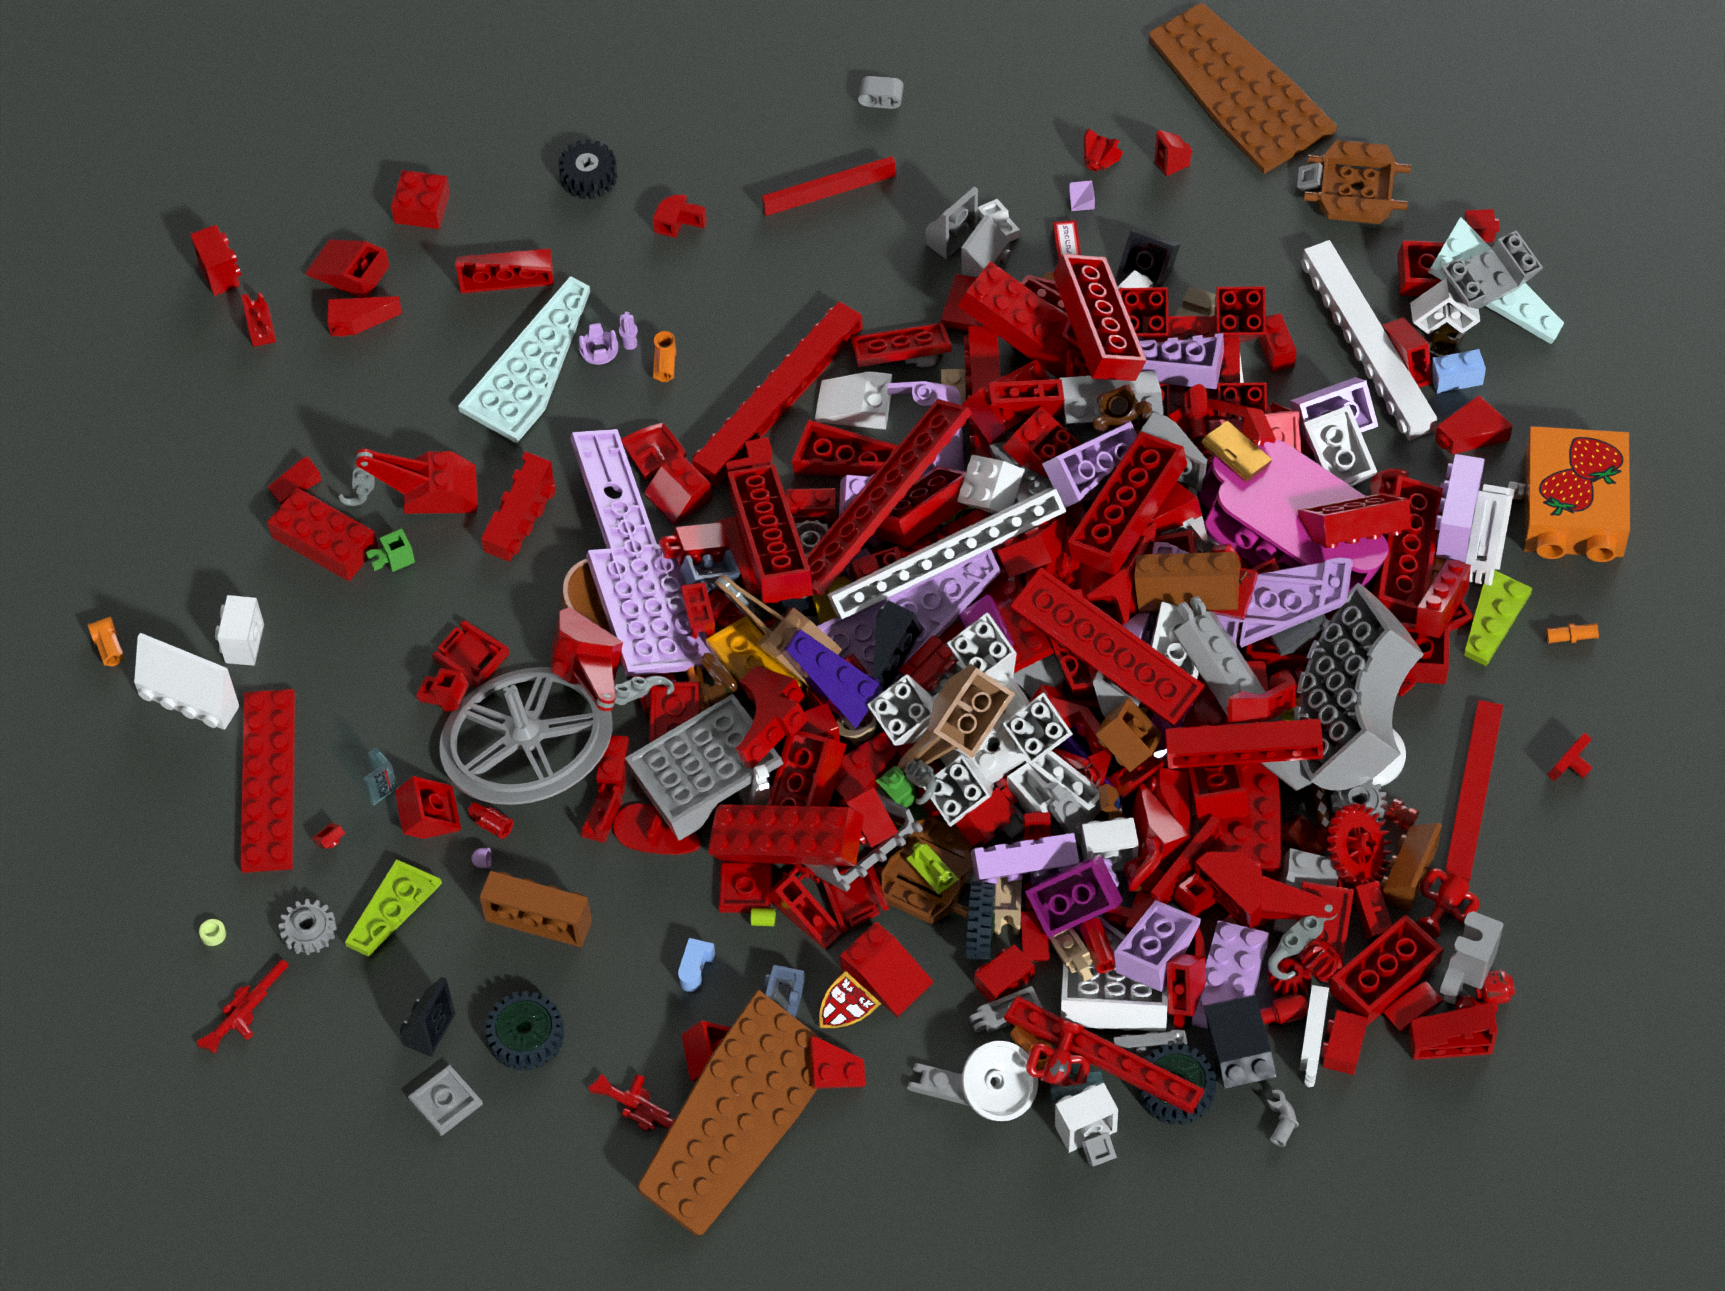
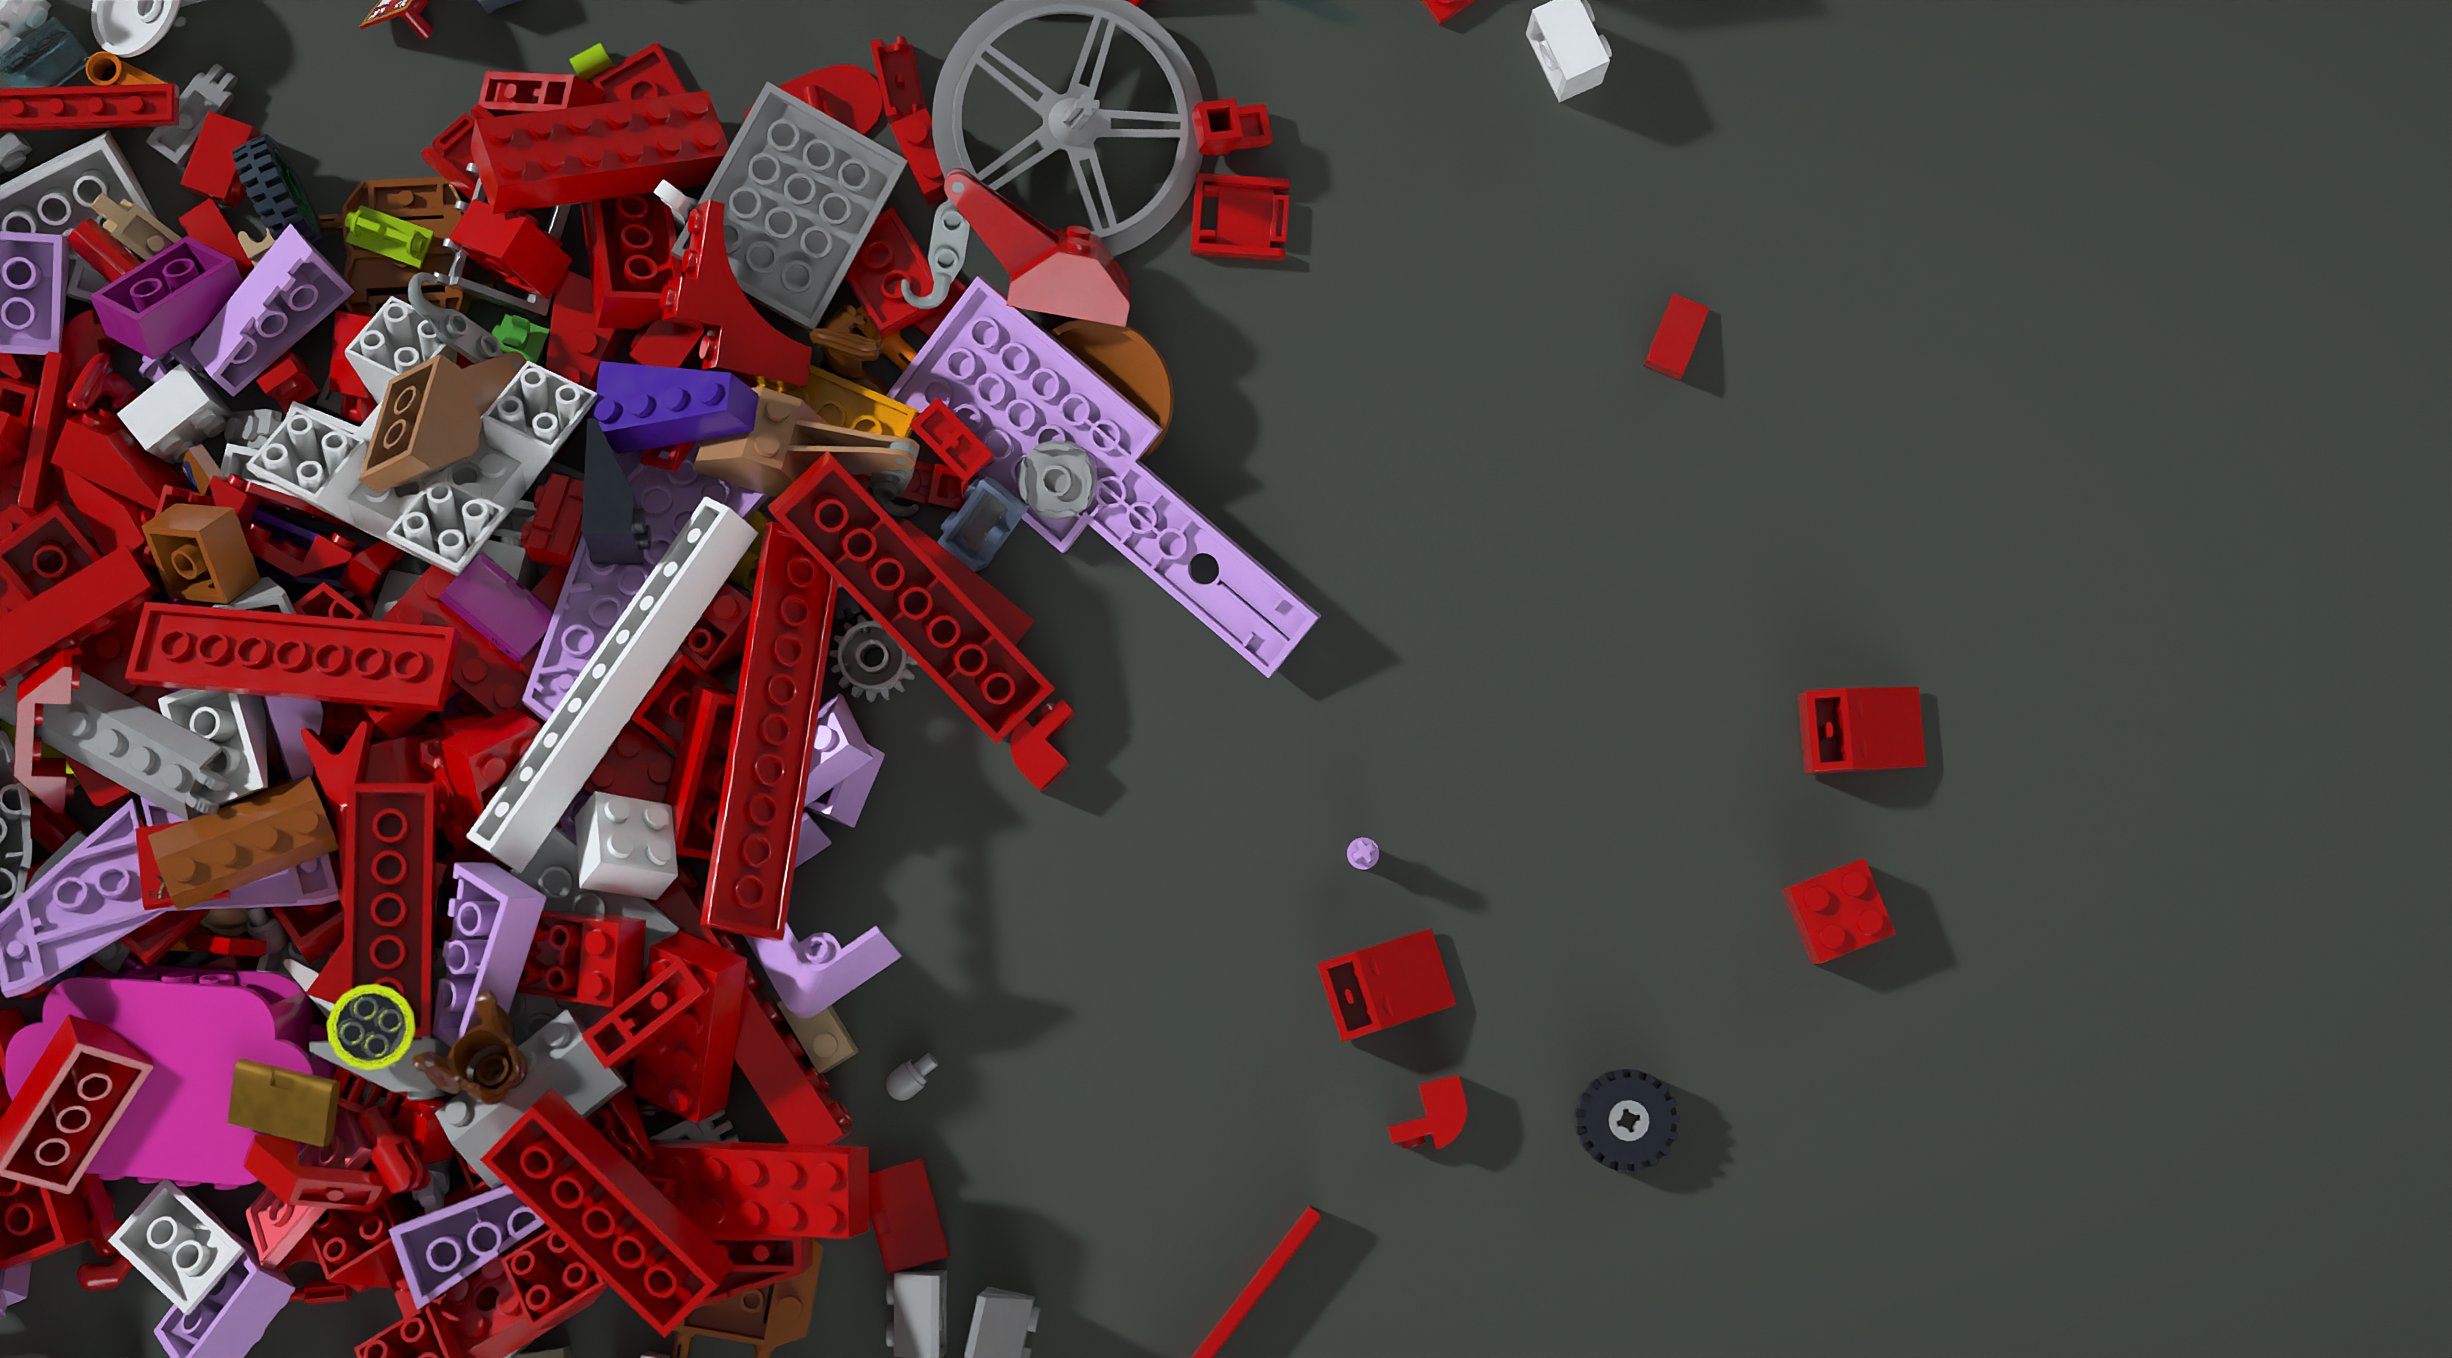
camera: 150 degrees right, 25 degrees up
(216, 259) = (2057, 613): red brick -> none
(258, 320) = (1925, 563): red hinge -> none
(322, 534) = (1570, 268): red brick -> none
(359, 314) = (1789, 651): red slope -> none
(395, 551) = (1448, 294): bright green brick -> none
(428, 483) = (1474, 423): red slope -> none
(505, 270) = (1624, 861): red wedge -> none
(520, 507) = (1320, 466): red wedge -> none
(523, 378) = (1470, 692): light aqua wing -> none
(598, 336) = (1414, 799): lavender piece -> none
(650, 570) = (1057, 479): none -> light grey tile
(652, 448) = (1201, 686): red plate -> none
(662, 276) = (1386, 984): none -> red slope
(664, 356) = (1284, 846): orange piece -> none
(678, 489) = (1119, 636): red slope -> none
(696, 542) = (1029, 554): red brick -> none
(778, 391) = (1081, 886): red brick -> none
(812, 504) = (911, 720): red brick -> none
(838, 452) = (915, 831): red wedge -> none
(855, 400) = (963, 939): white slope -> none
(885, 969) = (386, 79): red slope -> none
(900, 344) = (950, 1075): red tile -> none
(1059, 1059) = (67, 58): red piece -> none
(1165, 441) = (371, 1027): none -> tile

